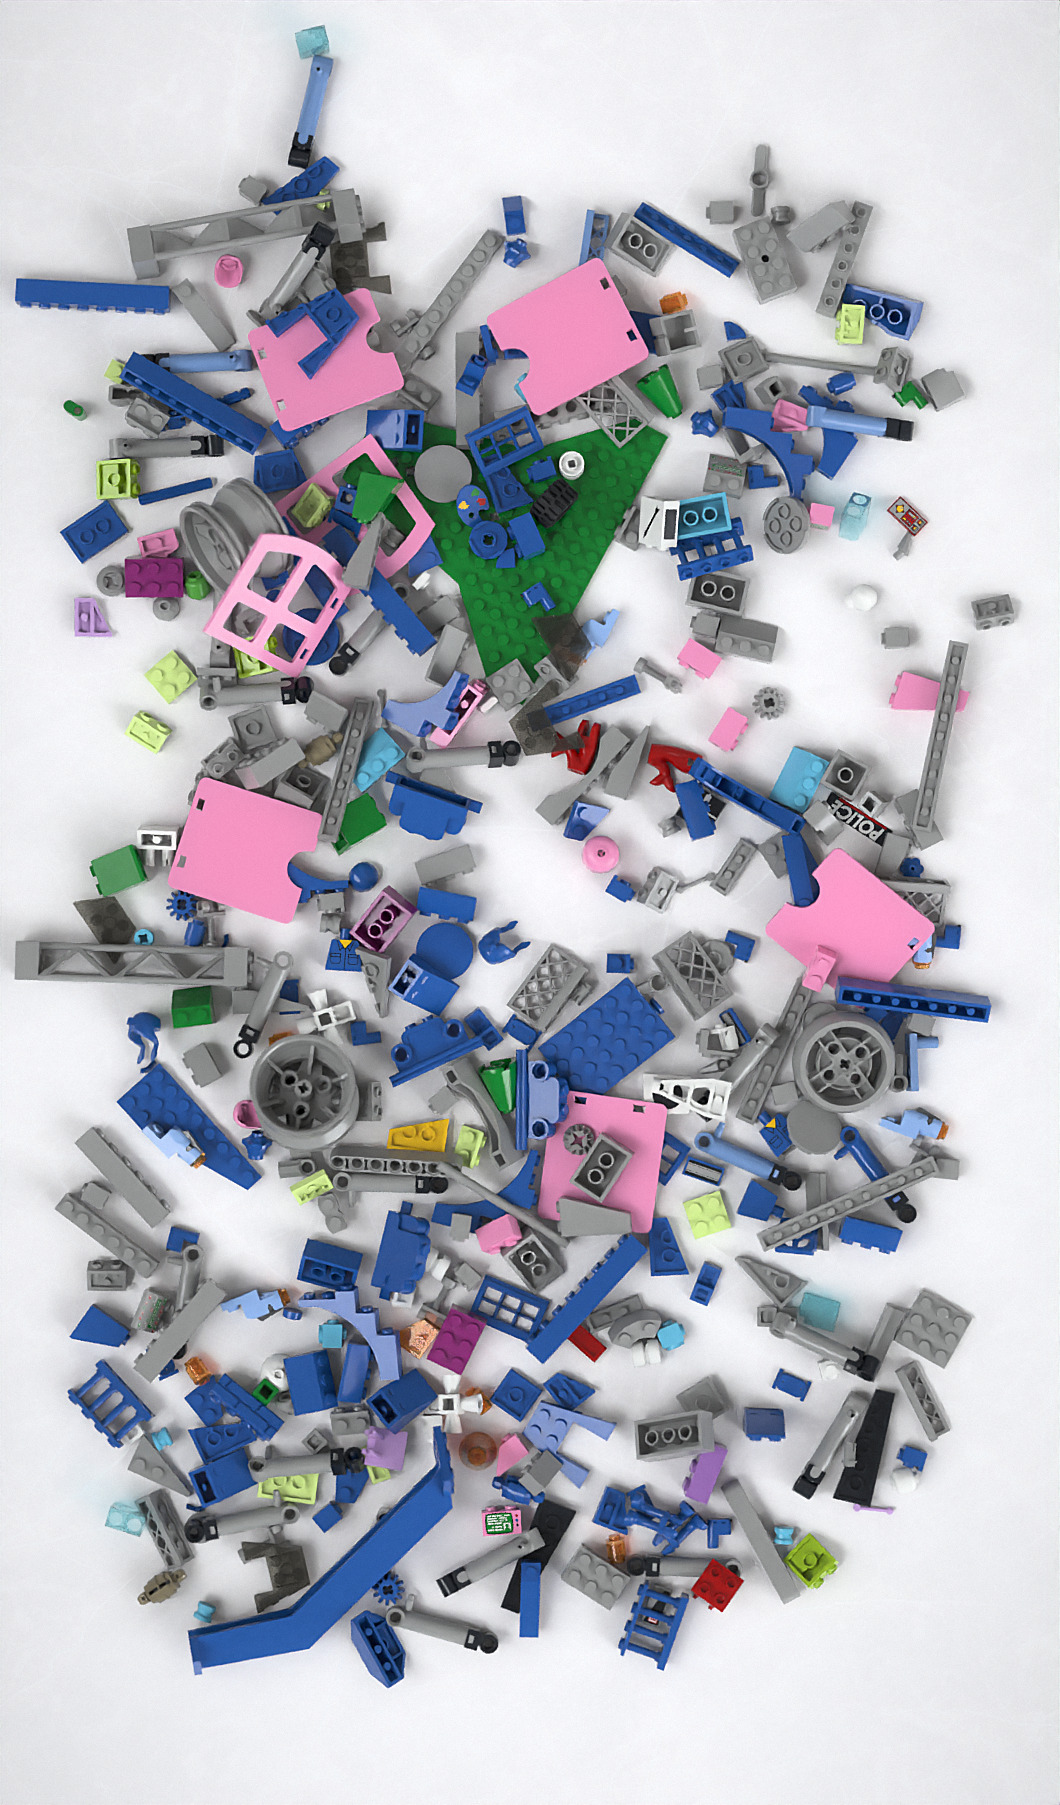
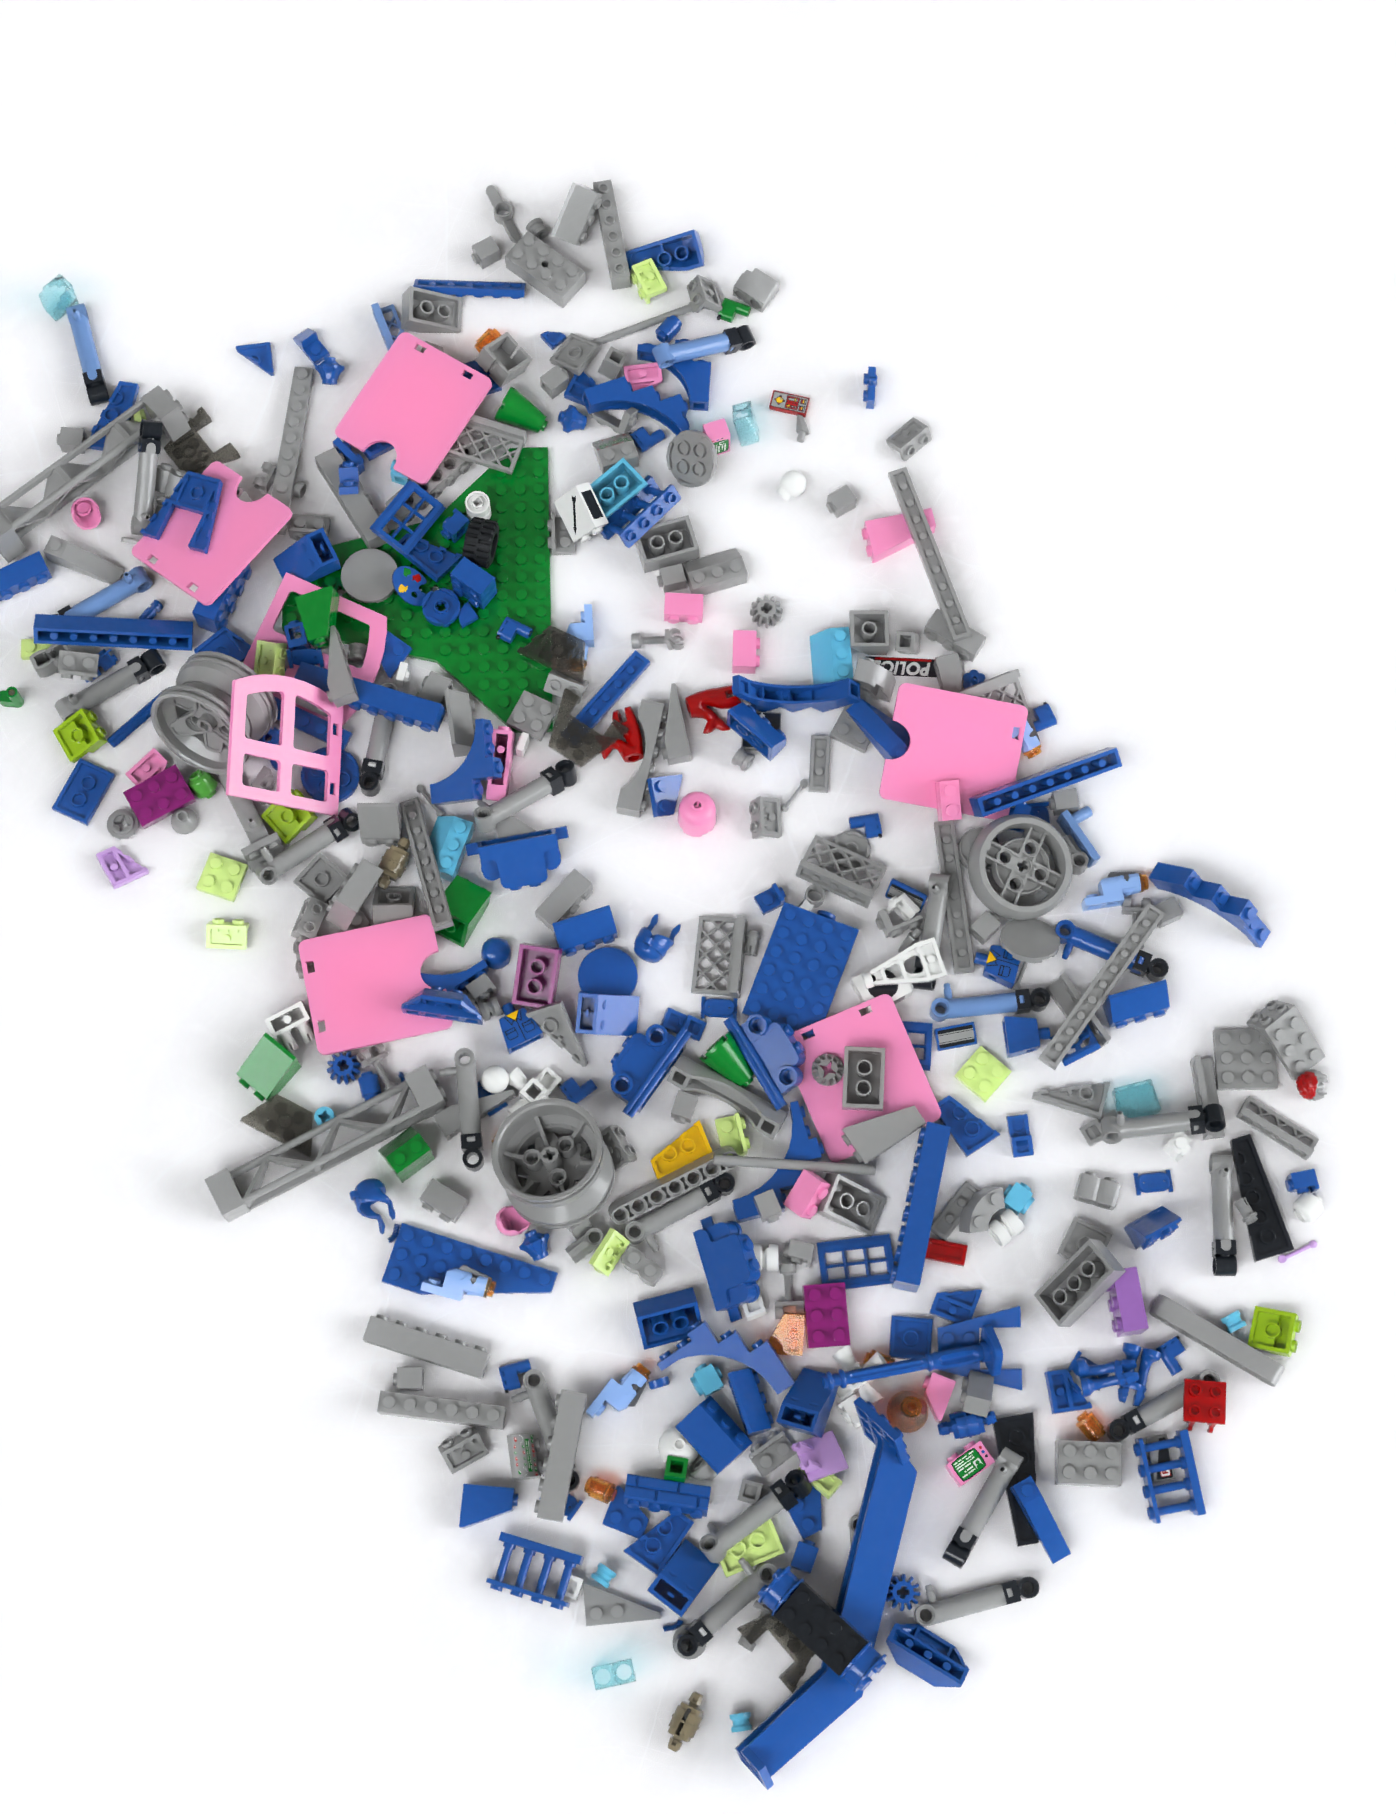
camera: 30 degrees left, 15 degrees down
(166, 1528) = (658, 1661): light grey fence -> none
(291, 904) = (443, 1005): none -> blue wedge
(299, 989) = (494, 1079): none -> white piece
(305, 1584) = (822, 1628): none -> black brick
(463, 198) = (259, 354): none -> blue tile
(566, 1444) = (987, 1351): none -> blue piece
(620, 889) = (732, 835): blue brick -> none
(739, 1366) = (1097, 1191): none -> light grey brick
(971, 1383) = (1310, 1083): none -> red piece
(977, 1332) = (1288, 1036): none -> light grey bracket
(988, 1182) = (1214, 897): none -> blue arch
(991, 536) = (870, 380): none -> blue plate

